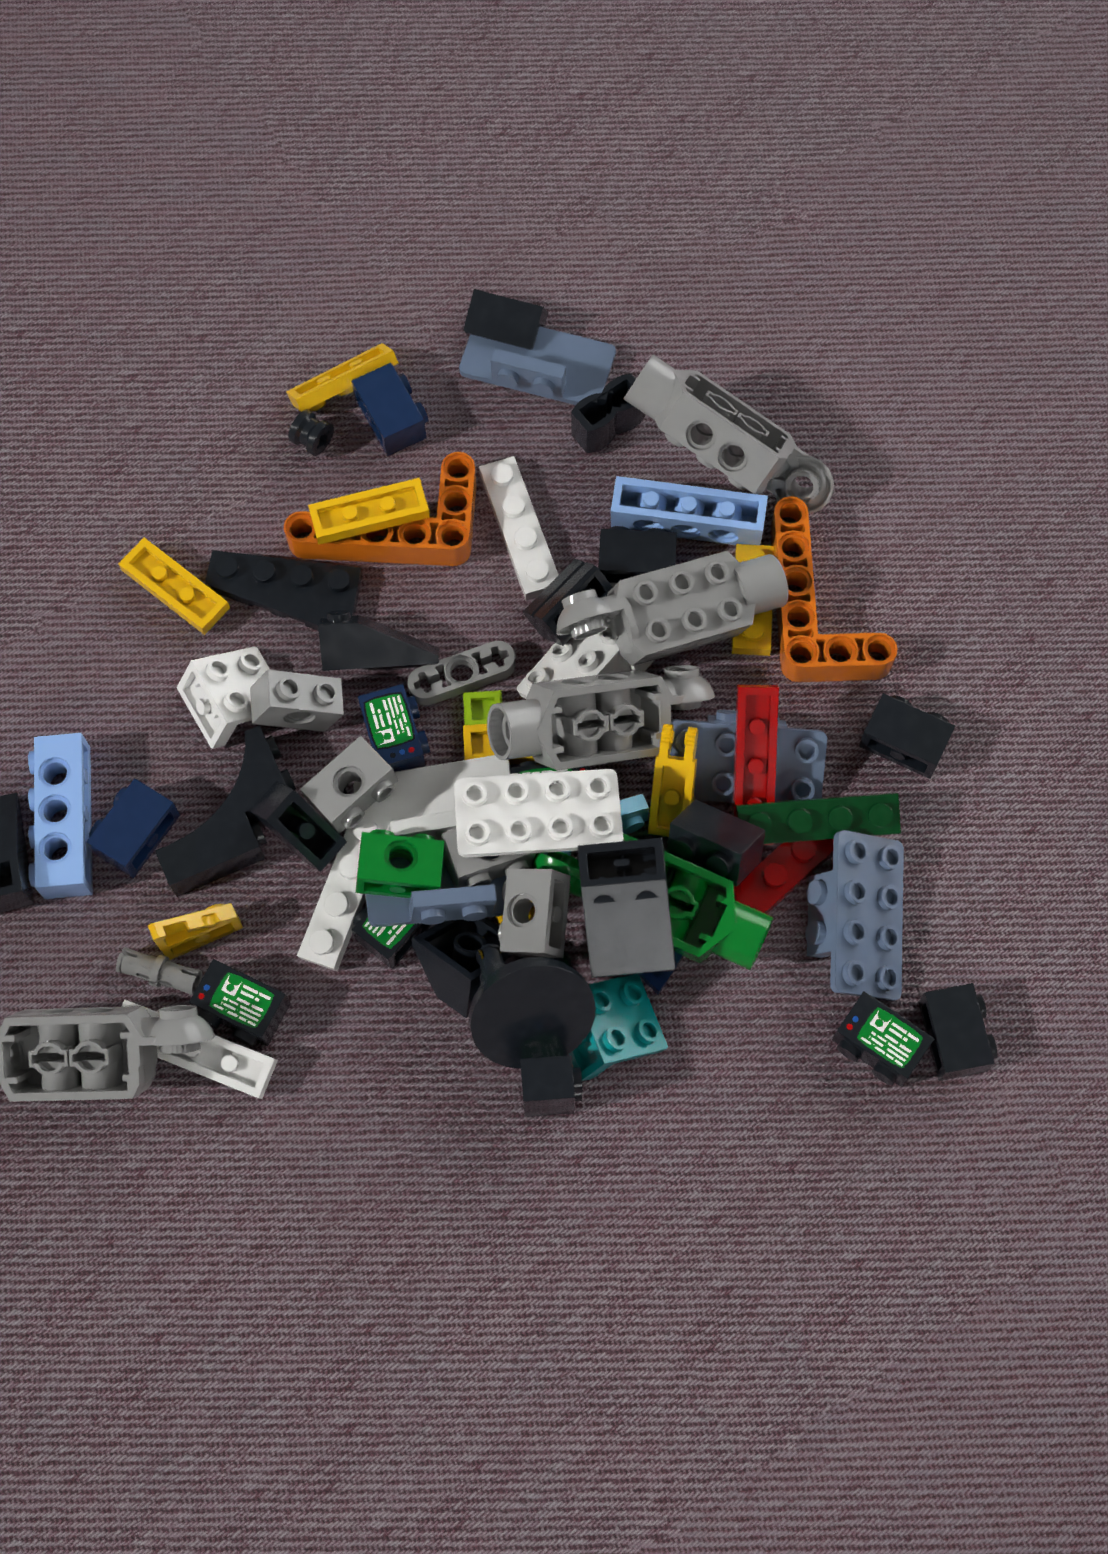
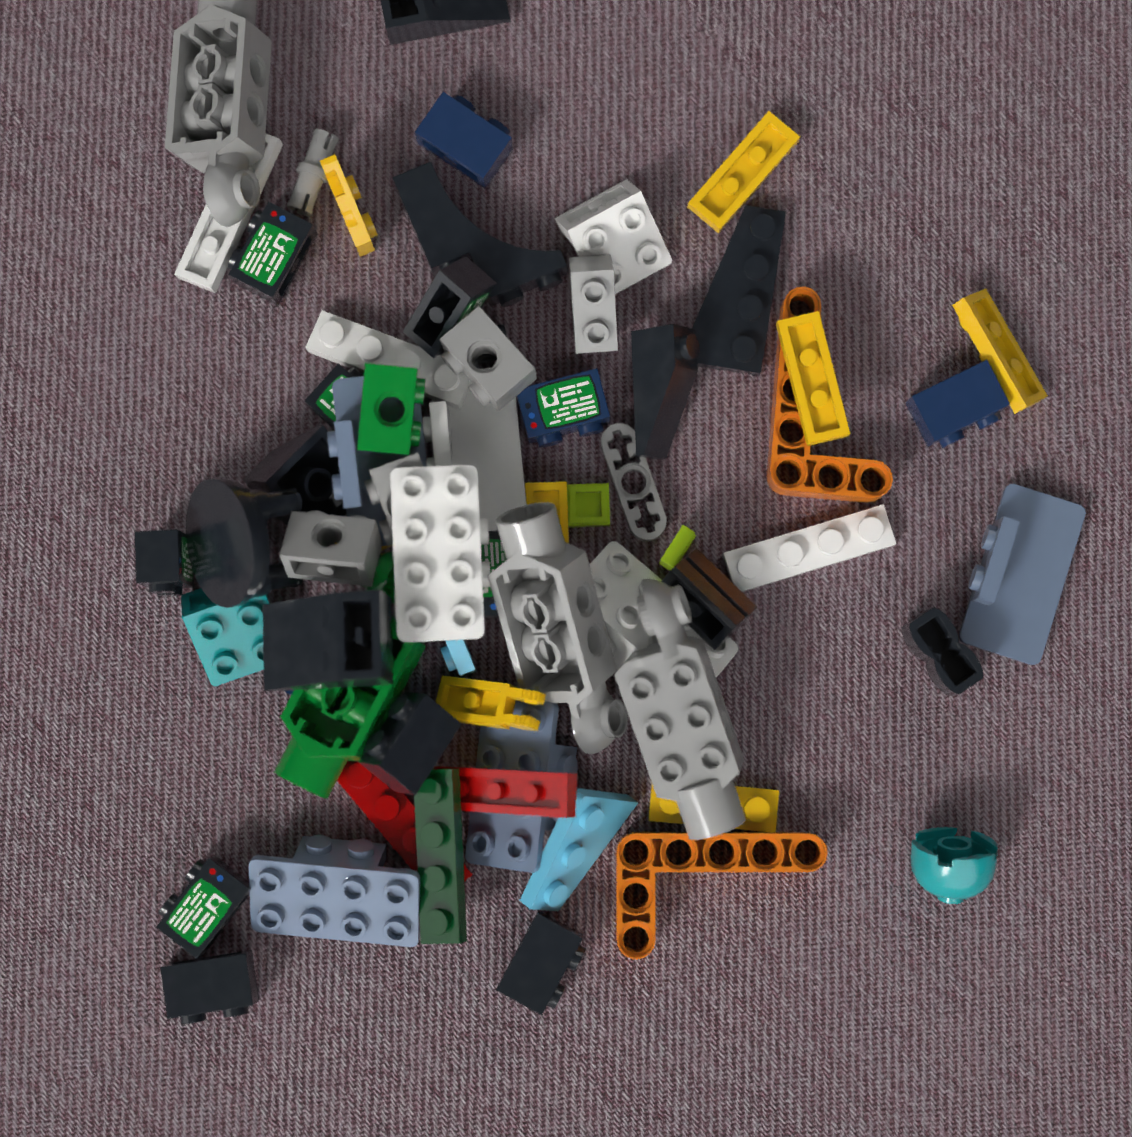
camera: 90 degrees right, 15 degrees up
(72, 873) = (500, 79): light blue brick -> none
(311, 432) = (929, 316): black wheel -> none
(504, 319) = (1073, 536): black panel -> none
(522, 630) = (677, 548): none -> lime tile
(635, 552) = (763, 677): black brick -> none
(689, 511) = (813, 736): light blue brick -> none
(728, 434) = (899, 783): light grey brick -> none
(793, 399) = (953, 864): none -> teal cylinder
(807, 709) = (575, 847): none -> medium azure wing

